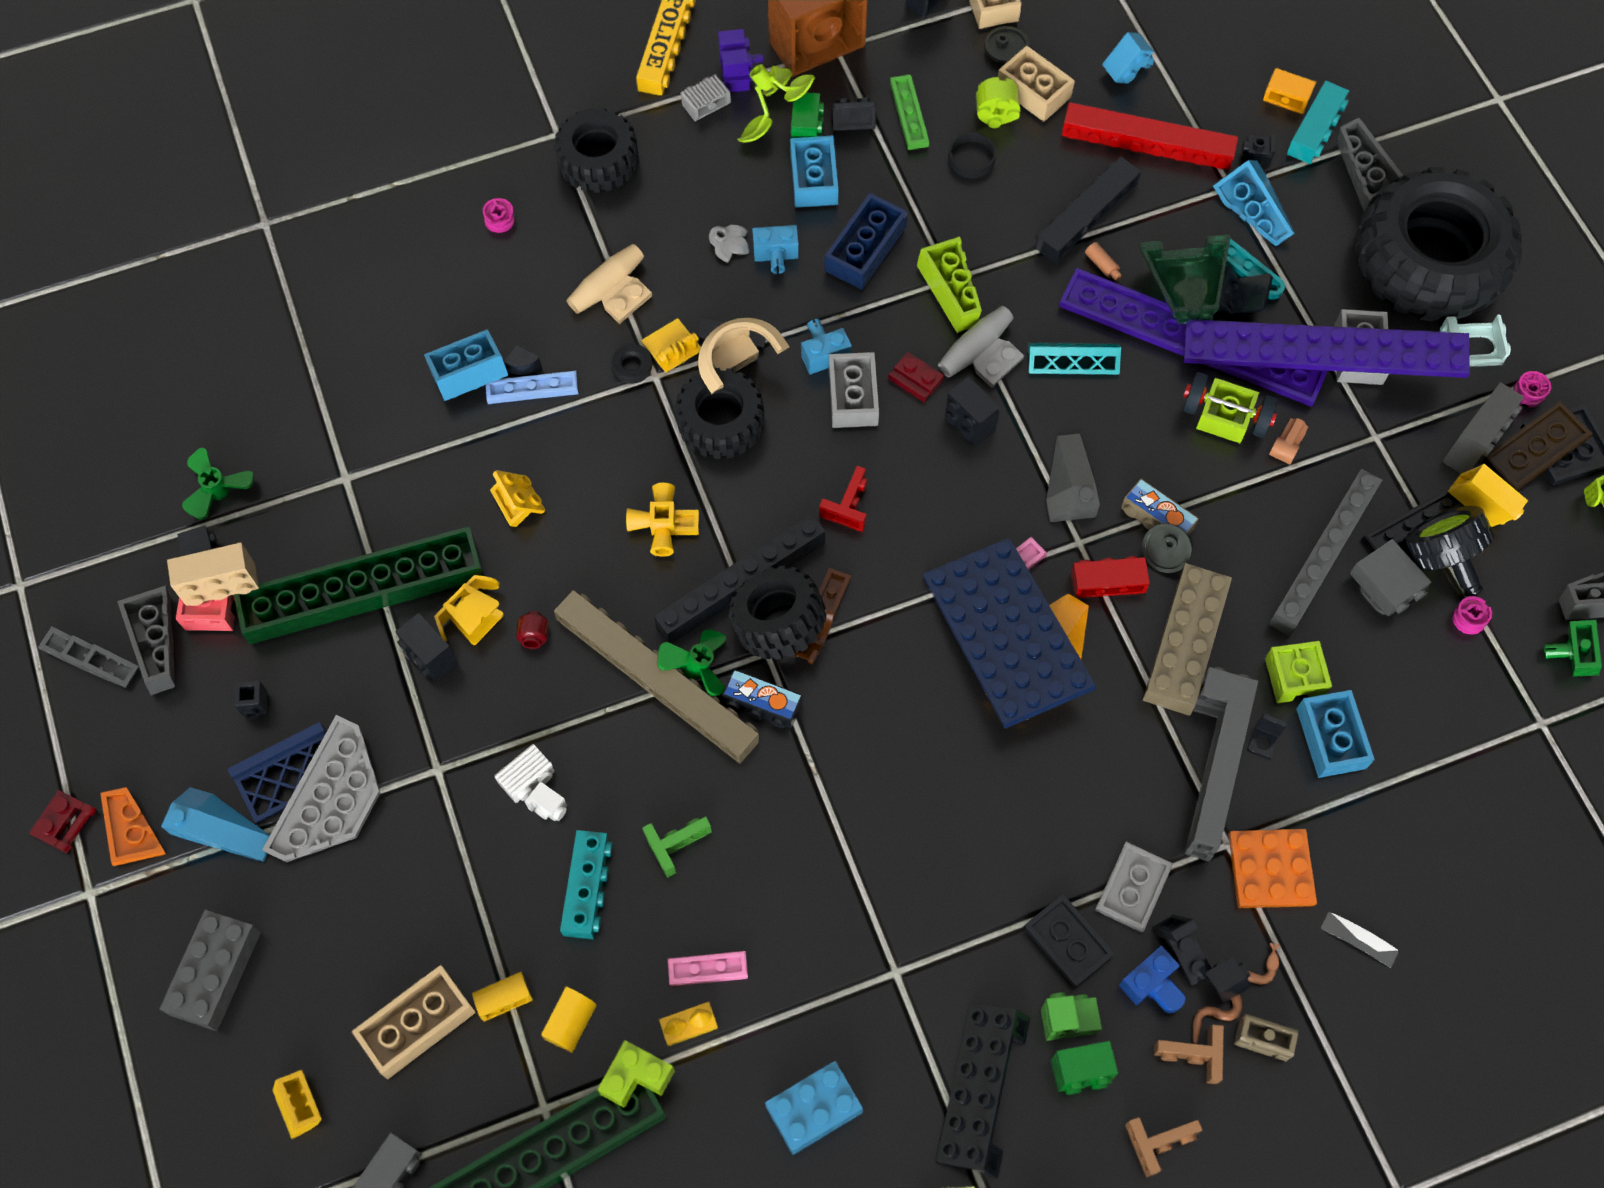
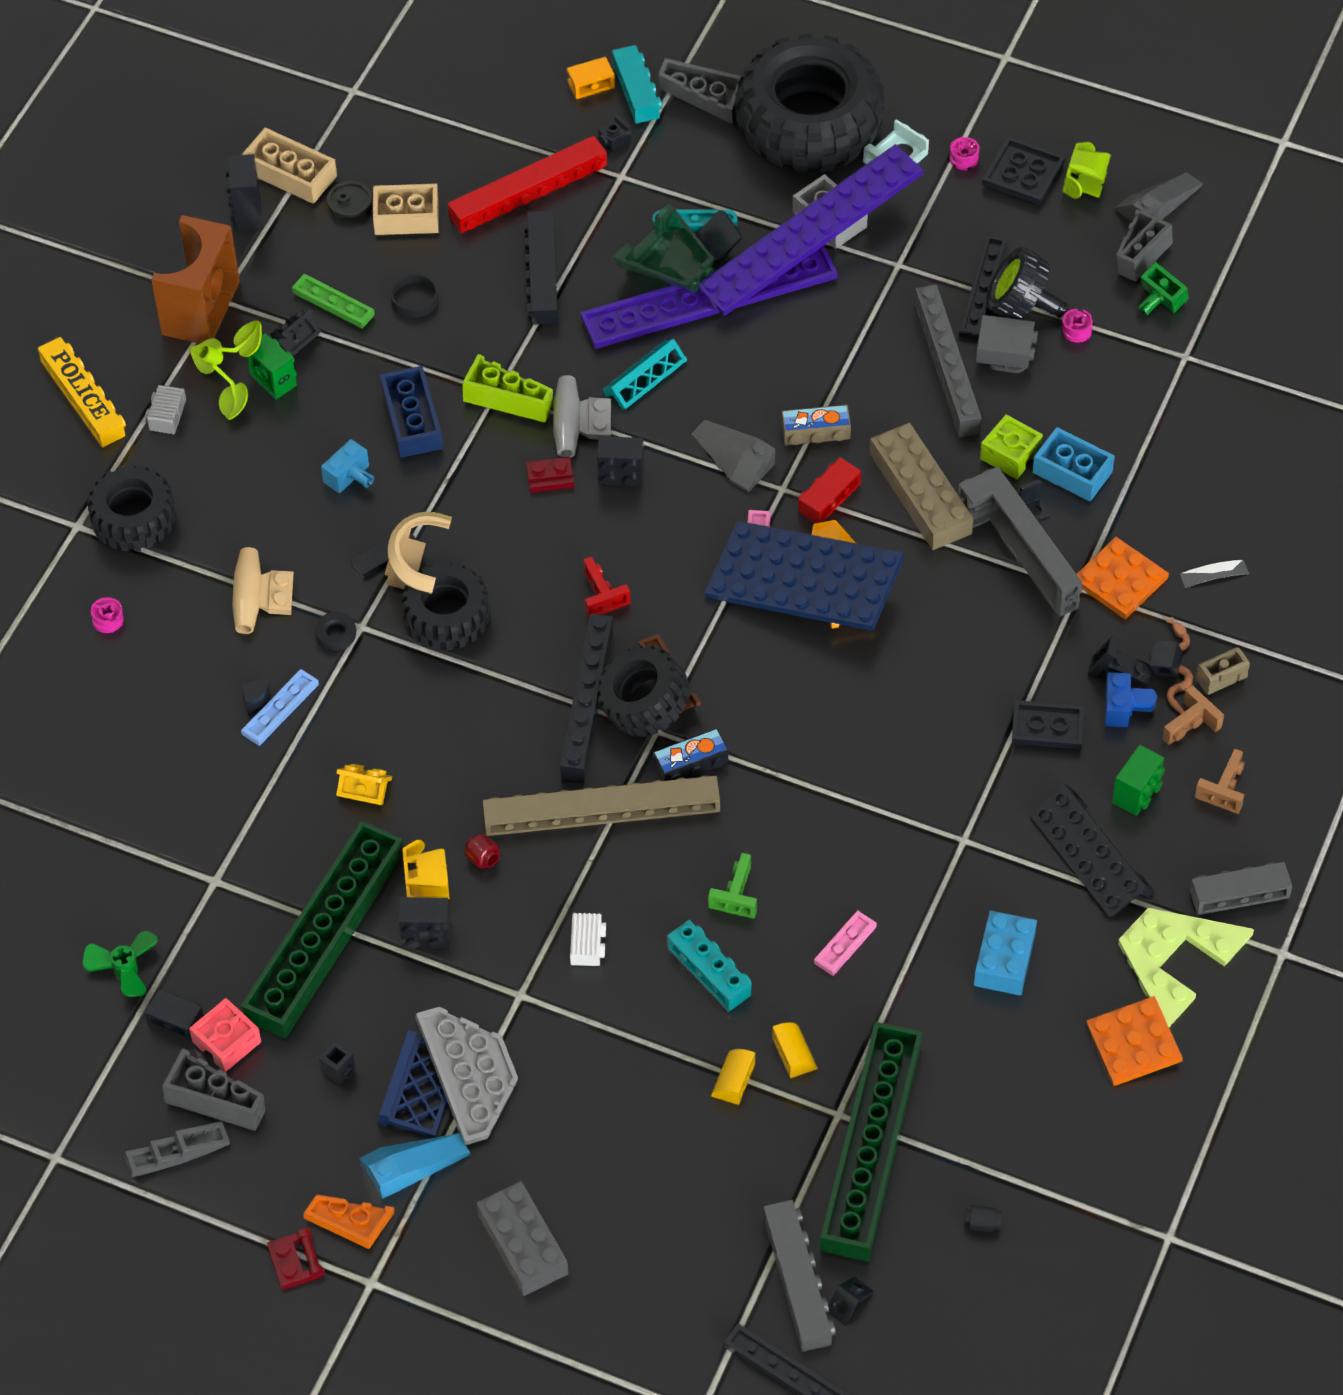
camera: 45 degrees left, 10 degrees down
(213, 574) = (223, 998): tan brick -> none
(296, 1103) = (678, 1256): yellow brick -> none
(413, 1022) = (698, 1137): tan brick -> none
(466, 365) = (219, 727): dark azure brick -> none
(546, 802) = (624, 942): white brick -> none
(634, 1067) = (878, 1018): lime brick -> none
(663, 520) = (487, 707): yellow brick -> none
(672, 345) = (350, 594): yellow hinge -> none
(688, 1024) = (871, 983): yellow tile -> none
(696, 661) = (620, 769): green piece -> none
(731, 243) = (305, 494): light grey plate -> none
(736, 60) = (161, 363): dark purple brick -> none
(814, 171) = (315, 394): dark azure brick -> none
(817, 350) = (466, 506): dark azure brick -> none
(853, 390) = (520, 515): light grey brick -> none
(997, 102) = (395, 242): lime brick -> none
(1070, 1016) = (1097, 764): bright green brick -> none
(1103, 261) = (592, 294): nougat cylinder -> none
(1129, 57) = (455, 139): dark azure brick -> none
(1134, 887) = (1051, 661): light grey tile -> none
(1167, 547) = (847, 439): pearl dark grey piece -> none
(1229, 408) = (789, 320): lime brick -> none
(1255, 201) = (648, 171): dark azure wedge -> none
(1288, 444) = (849, 315): nougat piece -> none
(1484, 429) = (963, 202): dark grey wedge -> none
(1490, 492) = (1009, 234): yellow brick -> none
(1538, 446) = (1007, 186): dark brown tile -> none

